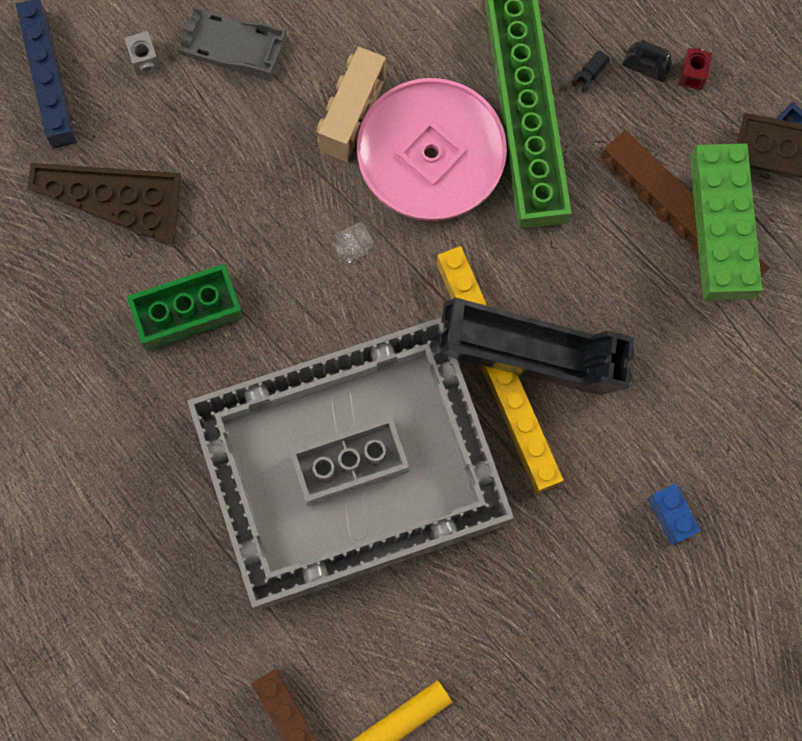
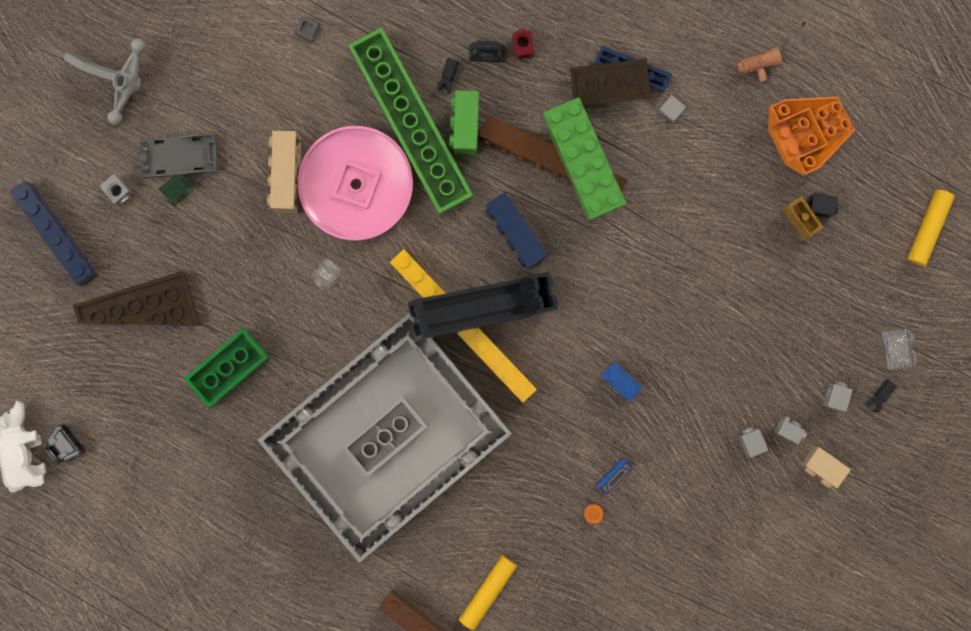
camera: 15 degrees left, 10 degrees up
(213, 78) = (176, 189): none -> clear green brick
(576, 673) = (593, 513): none -> orange tile
(592, 128) = (464, 122): none -> bright green brick
(607, 280) = (516, 231): none -> dark blue brick
(621, 634) = (614, 475): none -> blue slope

